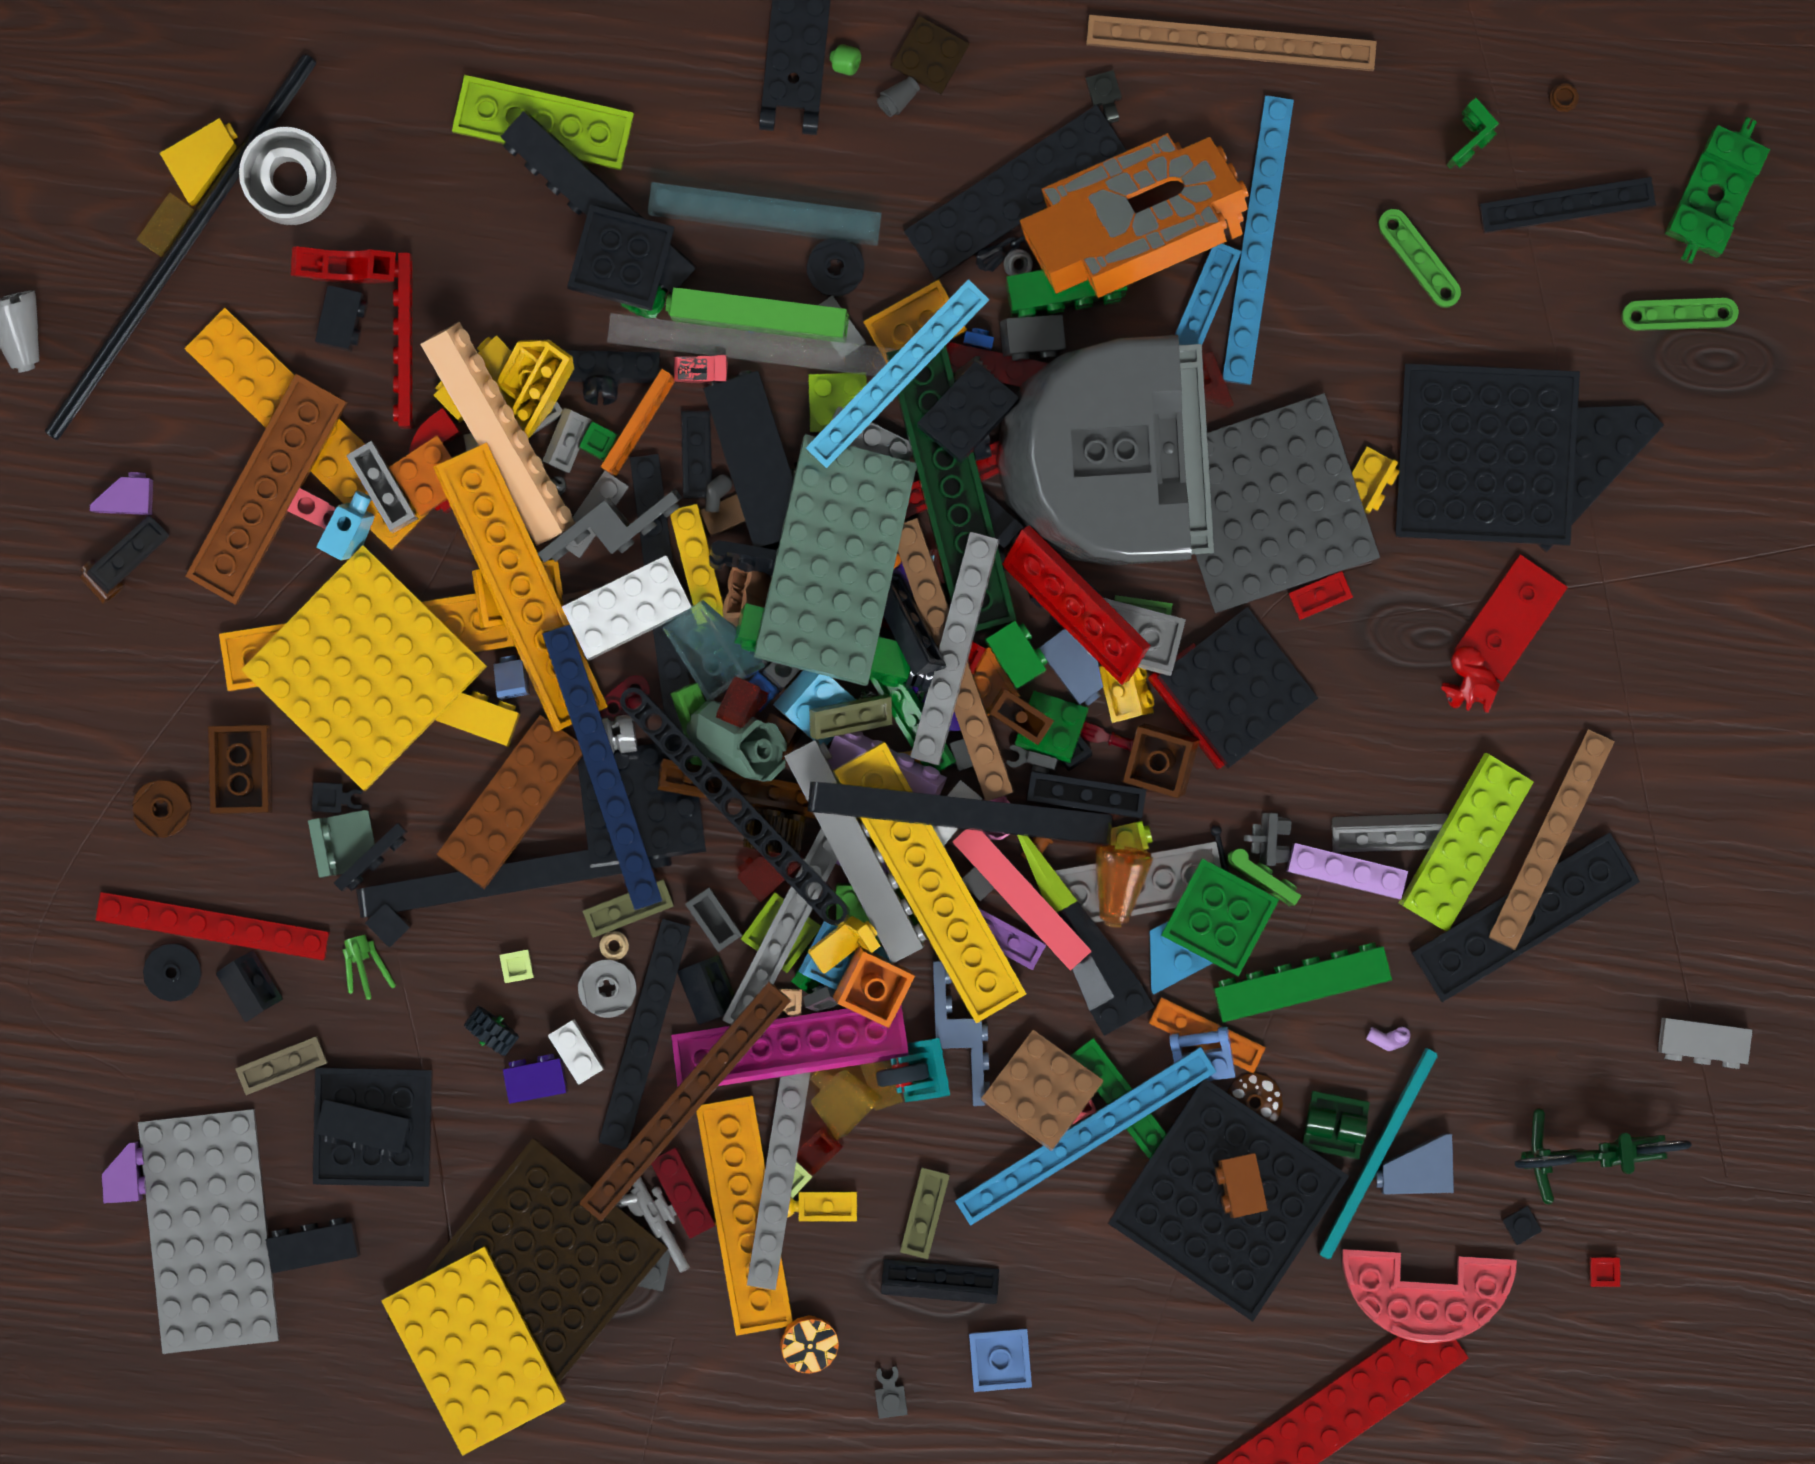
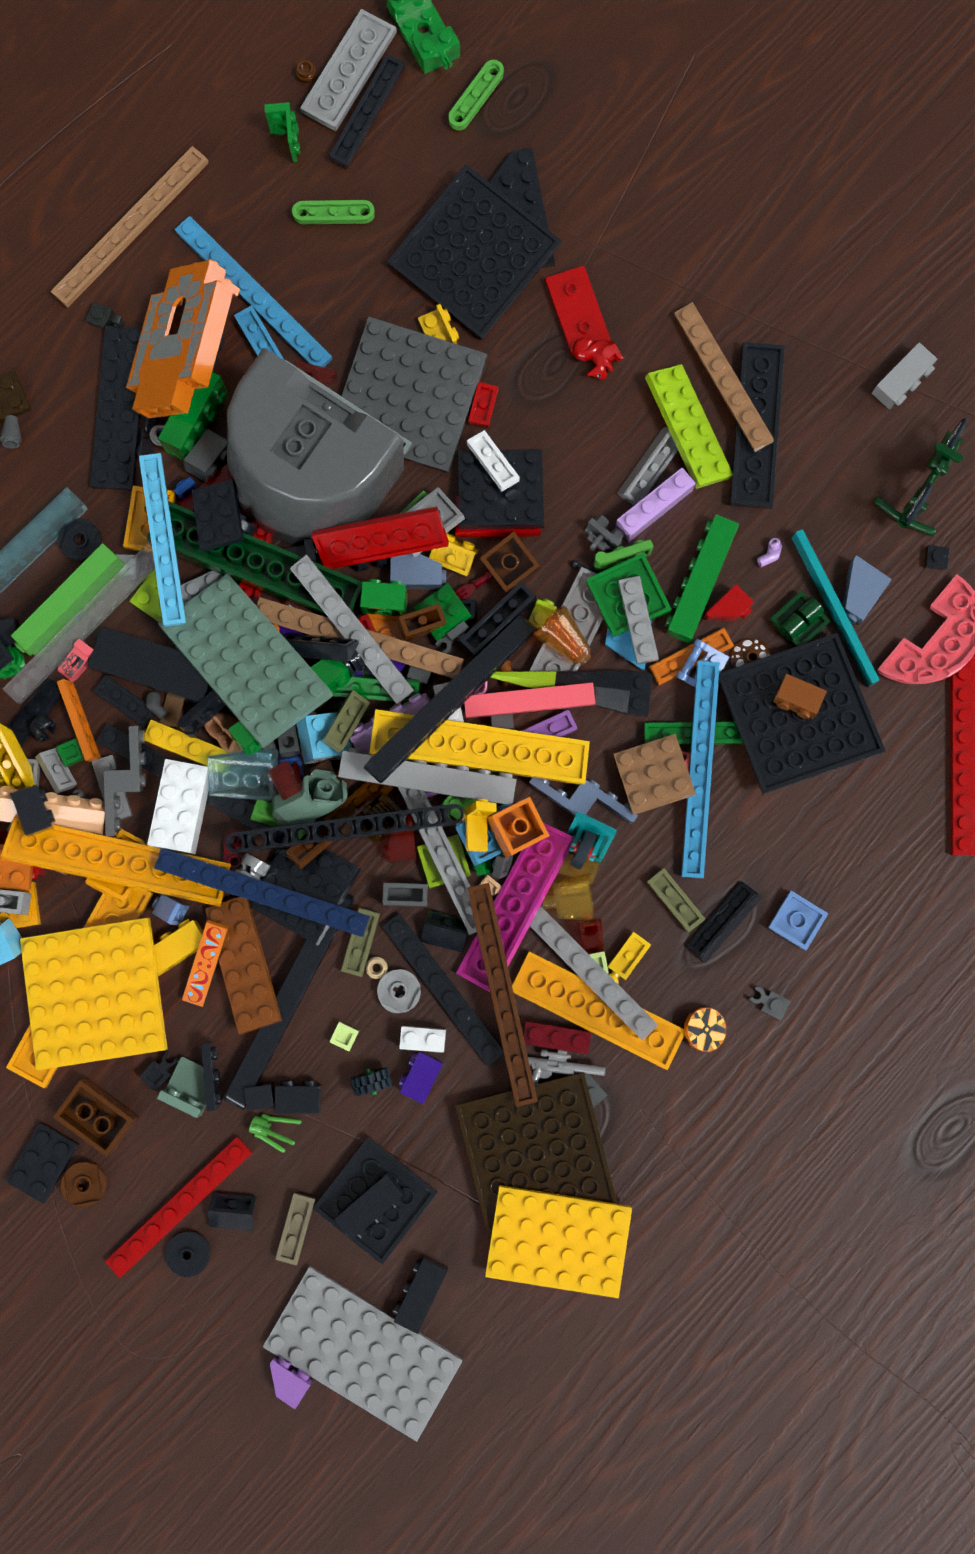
camera: 50 degrees left, 5 degrees down
(150, 747) = (42, 1162): none -> black plate
(416, 966) = (298, 1098): none -> black brick
(483, 761) = (205, 963): none -> orange tile
(507, 462) = (32, 810): none -> black brick
(1198, 949) = (638, 620): none -> light grey plate
(1260, 657) = (493, 460): none -> white plate
(1294, 1038) = (731, 606): none -> red slope
(1601, 146) = (348, 70): none -> light grey plate

